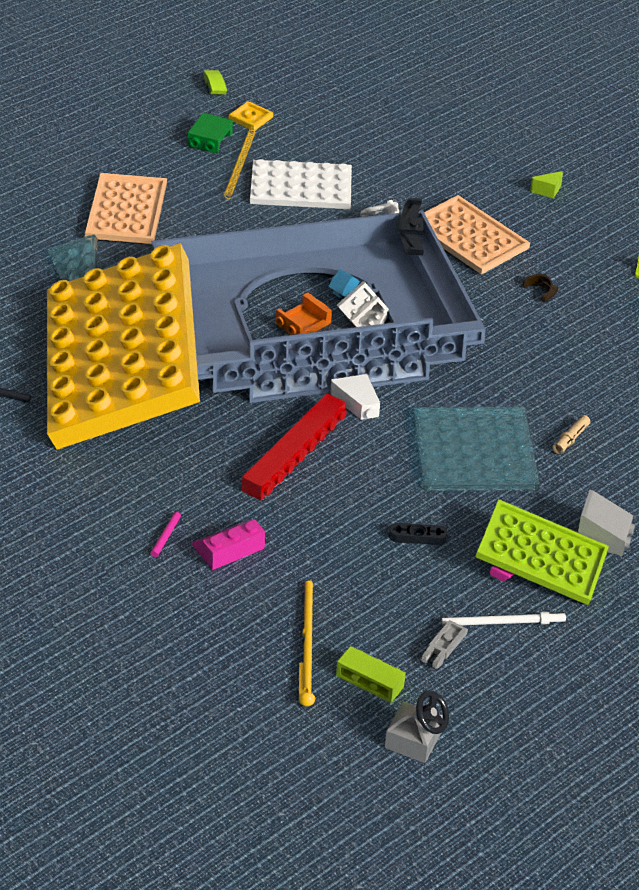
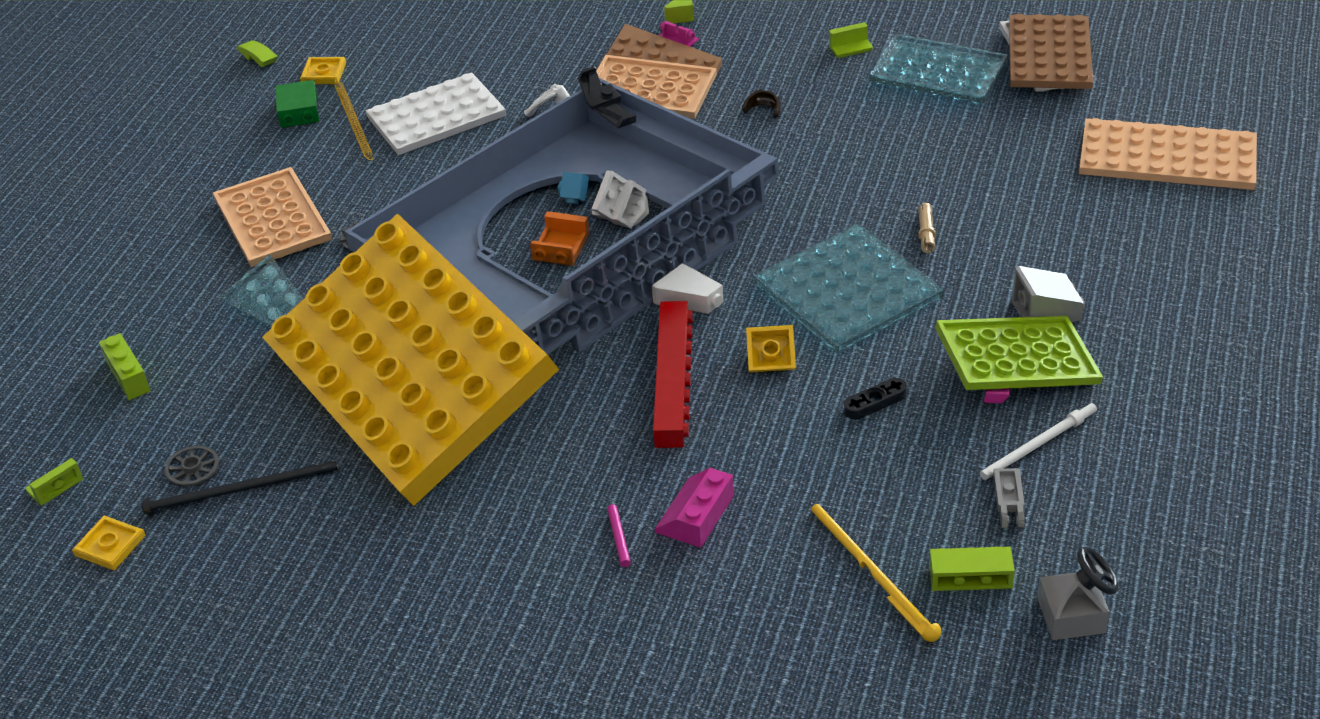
camera: 25 degrees left, 0 degrees up
(375, 463) = (771, 348): none -> yellow slope
(498, 203) = (645, 45): none -> medium nougat wing
(526, 204) = (683, 35): none -> dark pink hinge

